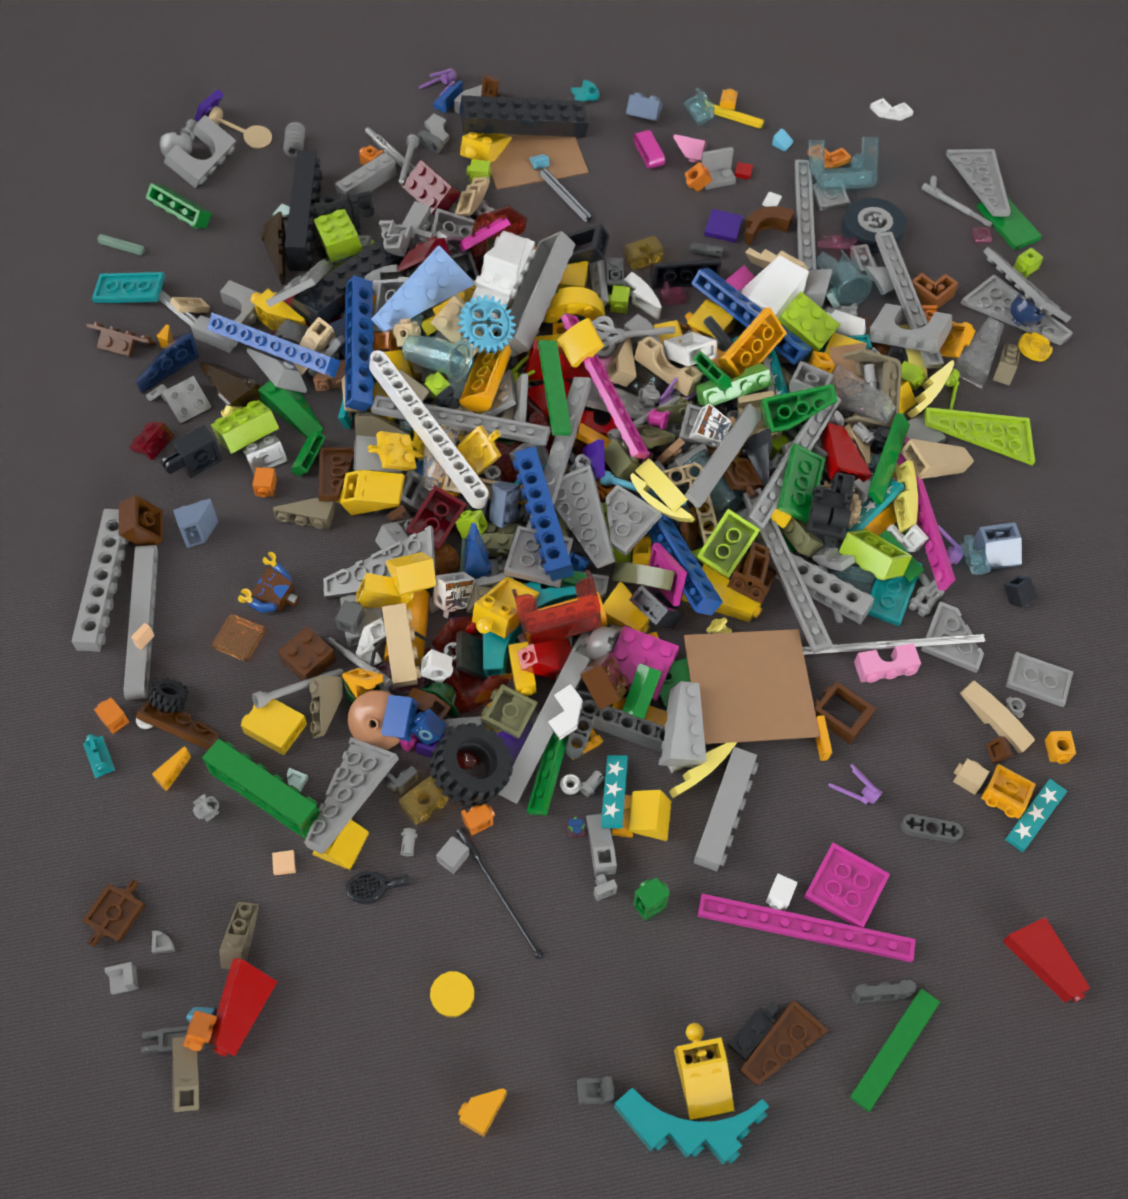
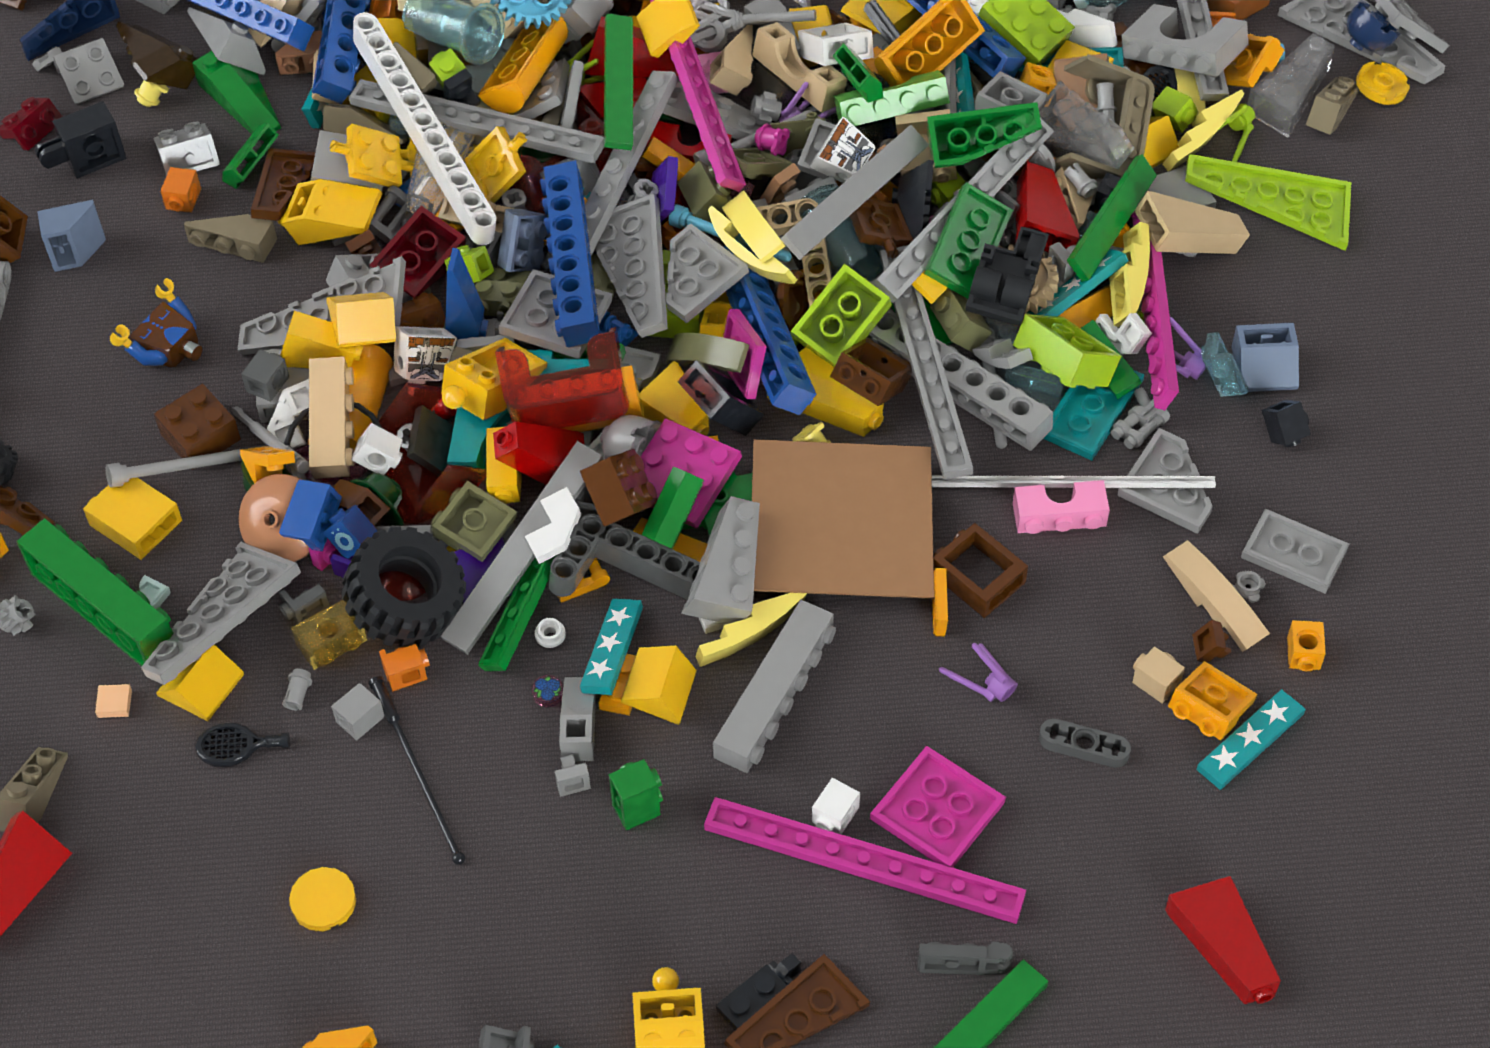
camera: 10 degrees right, 5 degrees down
(238, 637) = (104, 396): clear orange tile -> none
(244, 426) = (164, 110): lime brick -> none
(326, 697) = (212, 483): dark tan slope -> none
(587, 788) = (581, 635): light grey pin -> none
(756, 563) = (877, 345): reddish brown slope -> none

